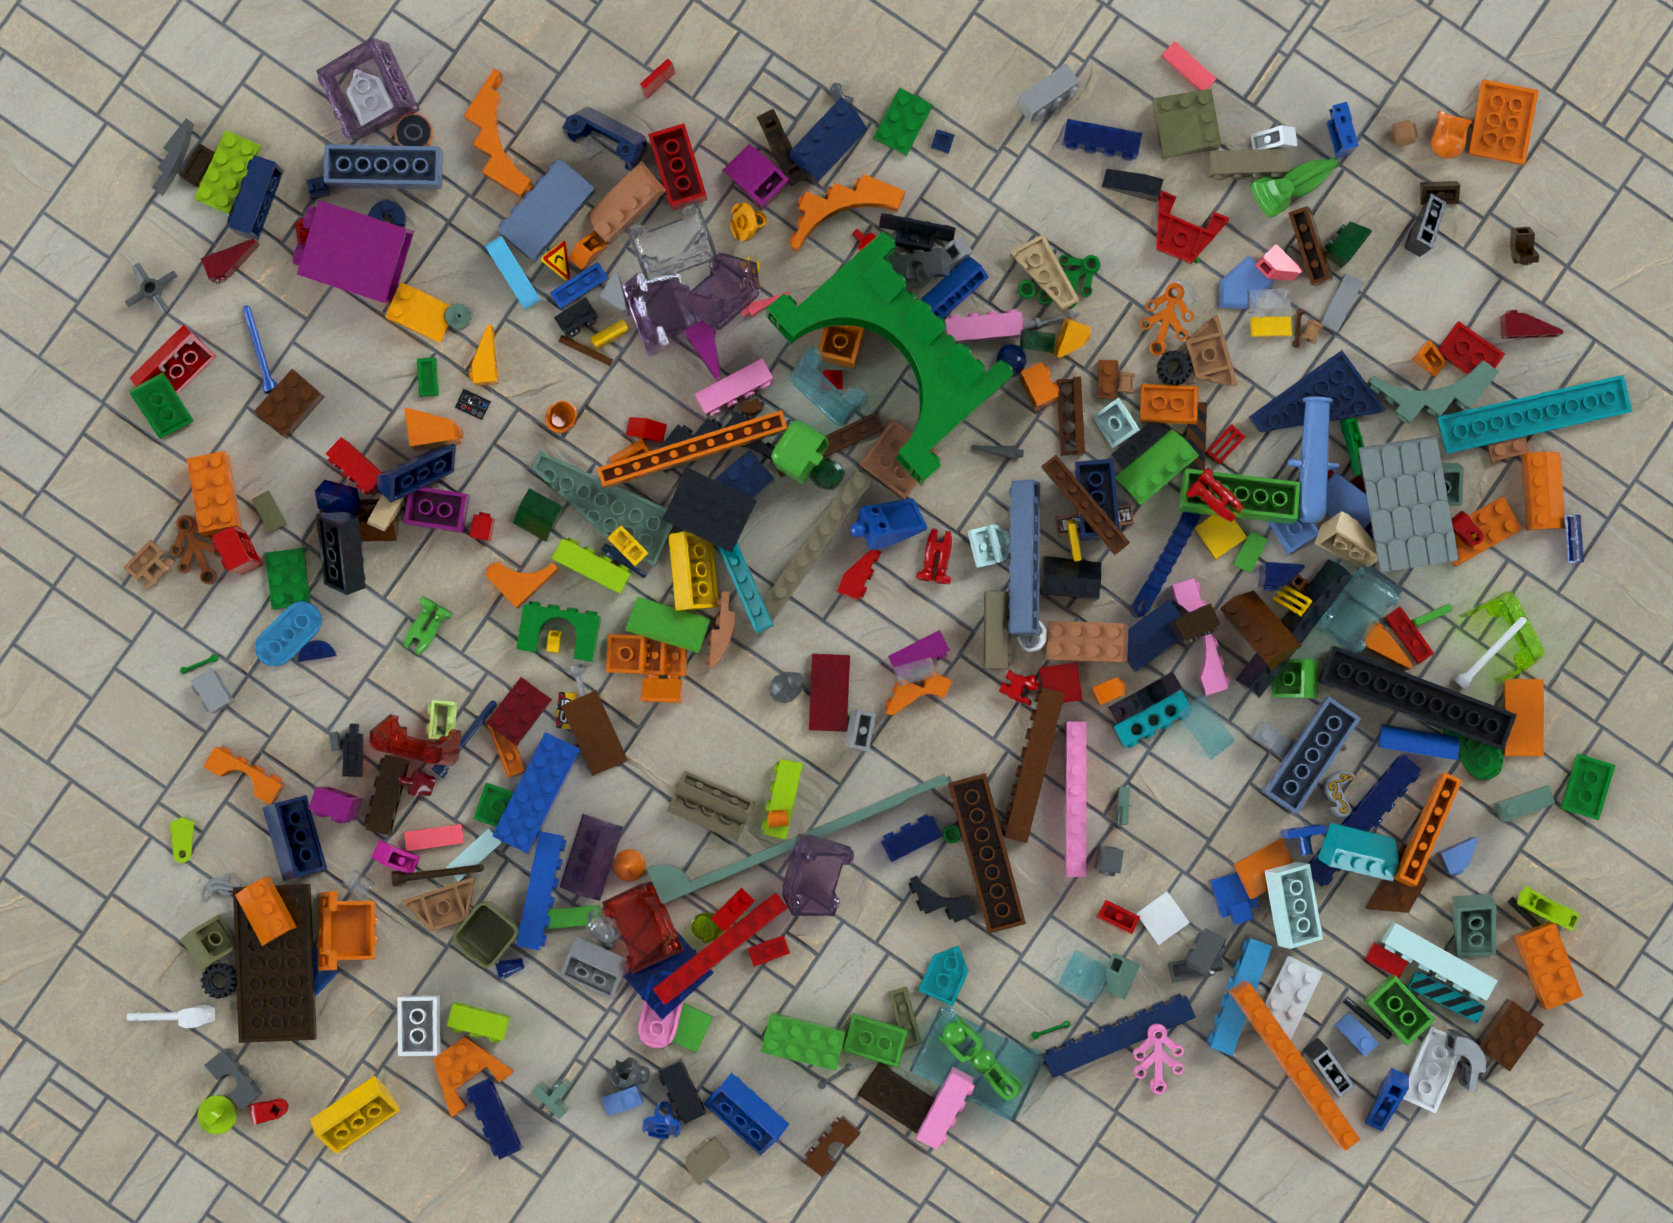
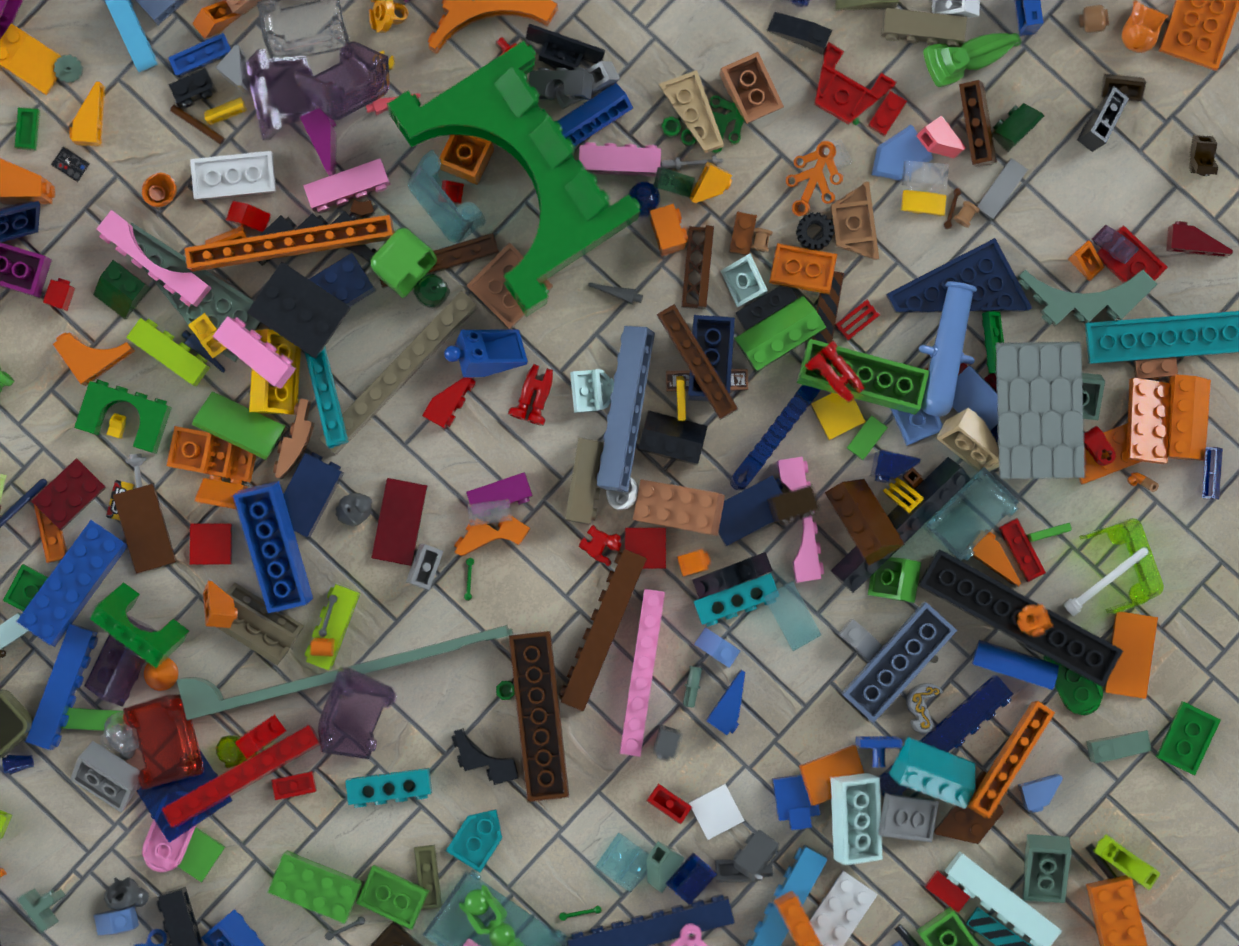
camera: 10 degrees right, 0 degrees up
(558, 260) = (181, 25): piece -> none
(601, 501) = (121, 233): none -> bright pink arch
(616, 839) = (151, 646): none -> green arch
(626, 393) = (233, 175): none -> white plate
(657, 738) = (210, 544): none -> red tile
(675, 555) = (254, 352): none -> bright pink brick
(675, 795) = (218, 607): none -> orange slope
(718, 732) = (273, 547): none -> blue brick
(741, 679) = (310, 492): none -> dark blue brick
(780, 772) = (333, 599): none -> dark grey hinge
(884, 925) = (356, 785): none -> teal brick
(900, 720) = (469, 562): none -> green hinge
(911, 837) = (462, 687): clear blue brick -> none
(1096, 243) = (751, 88): none -> nougat slope
(1141, 766) = (717, 647): none -> medium blue slope
(1149, 982) = (691, 878): none -> clear blue brick
(1159, 821) = (727, 710): none -> blue slope
(1225, 248) = (887, 113): none -> red plate
(1341, 897) = (908, 818): none -> light grey tile
(1437, 701) = (1040, 617): none -> orange brick
(1453, 339) = (1115, 243): none -> clear purple slope
(1508, 499) = (1148, 421): none -> plate
(1512, 555) = (1146, 482): none -> arm

